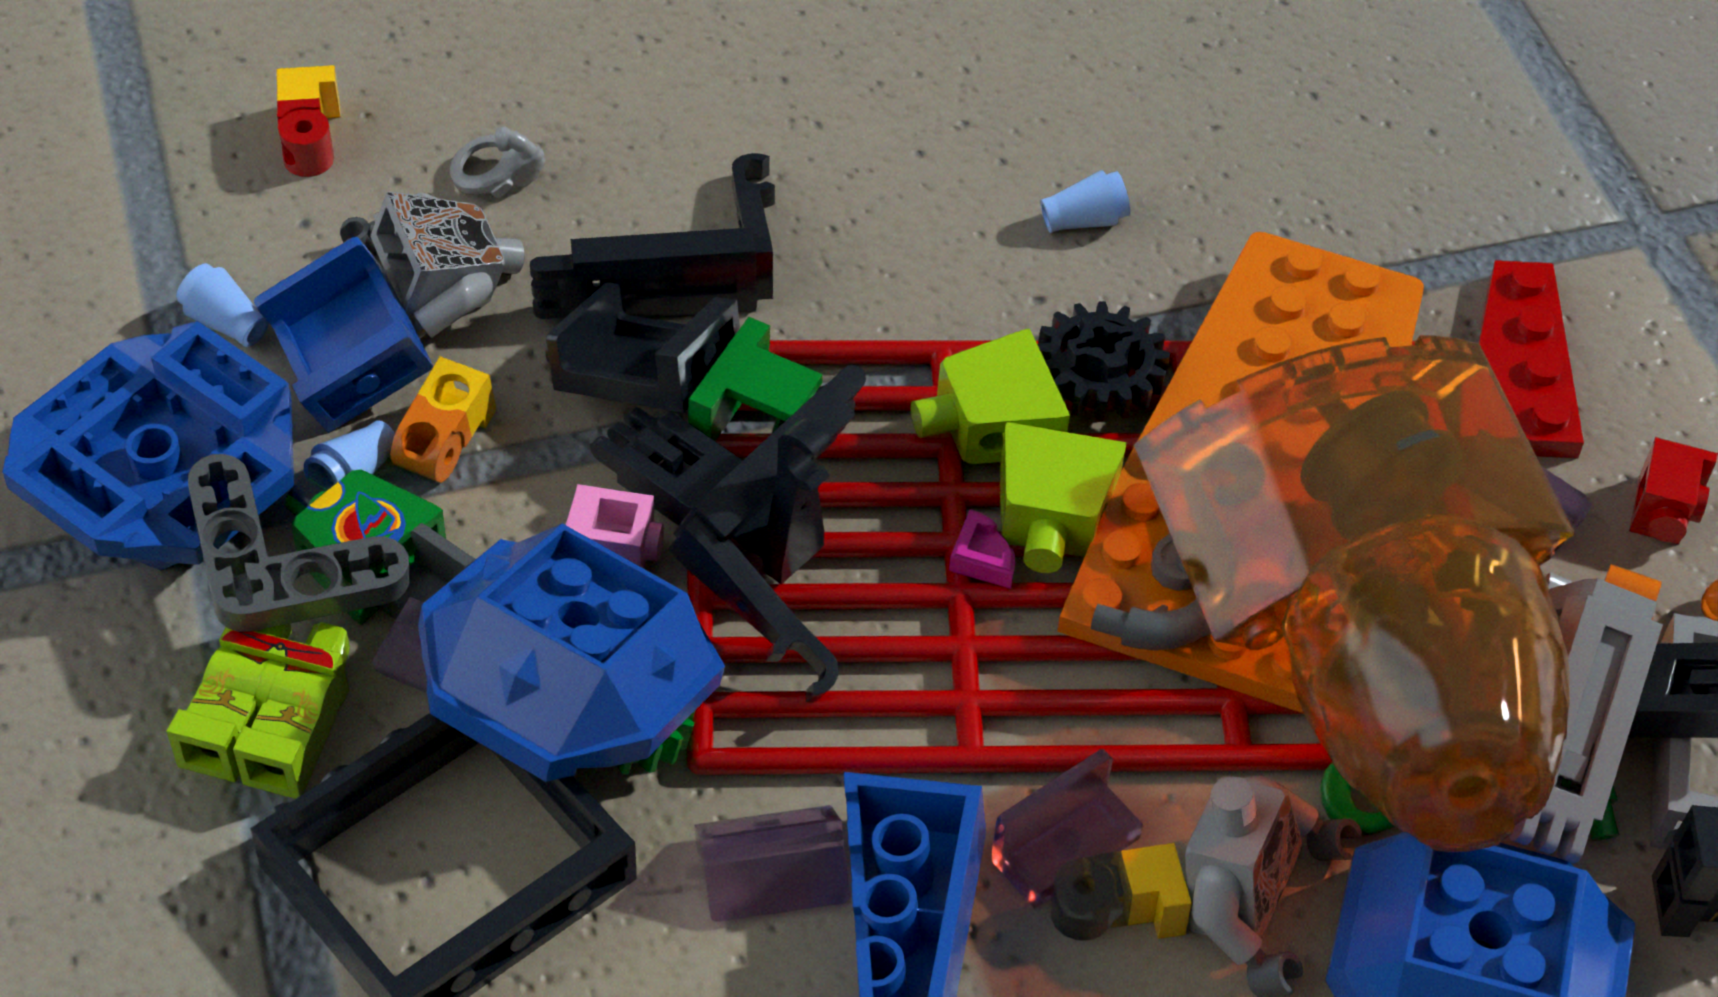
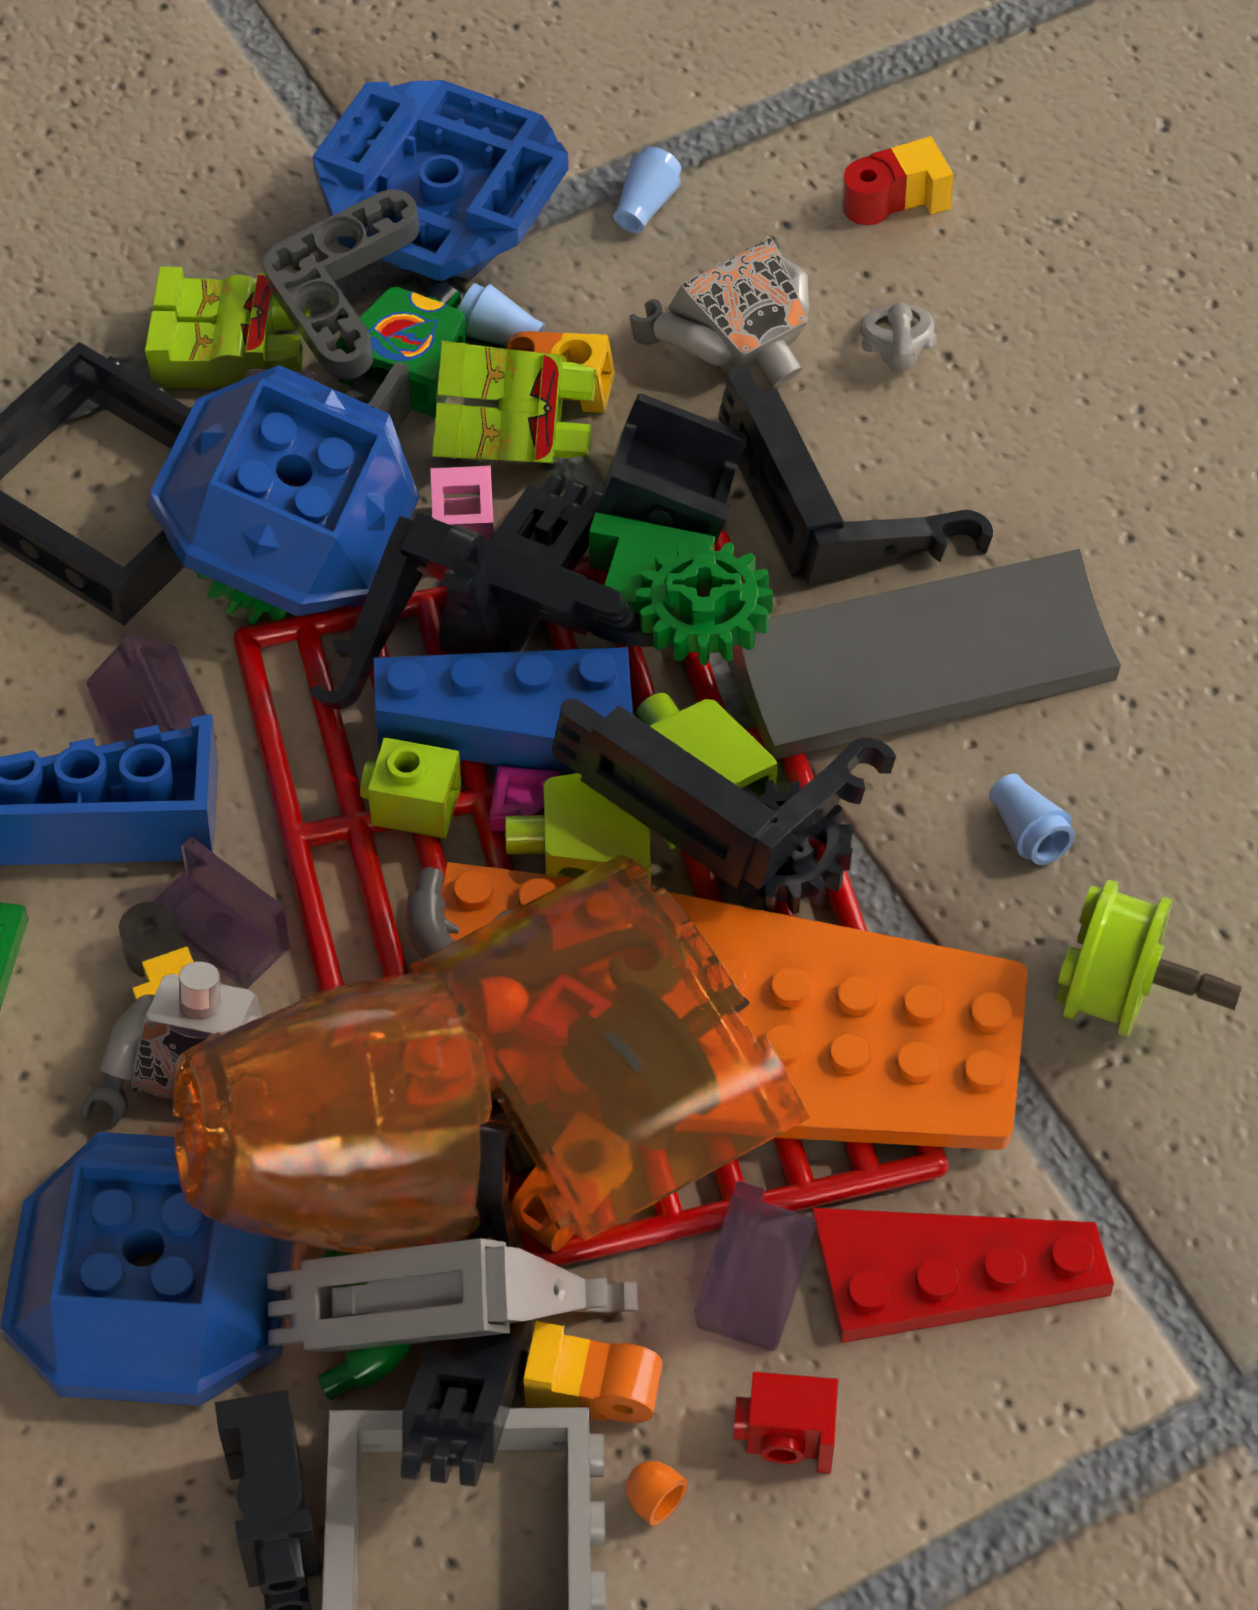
camera: 80 degrees right, 5 degrees up
(343, 334) = (629, 276): blue panel -> none
(499, 454) = (529, 405): none -> lime hips
(836, 328) = (704, 601): none -> green gear
(899, 233) = (924, 654): none -> dark grey arch
(906, 510) = (496, 704): none -> blue wedge
(968, 623) = (412, 787): none -> lime brick
(1082, 381) = (696, 804): none -> black hinge
(1271, 163) = (1125, 959): none -> lime wheel

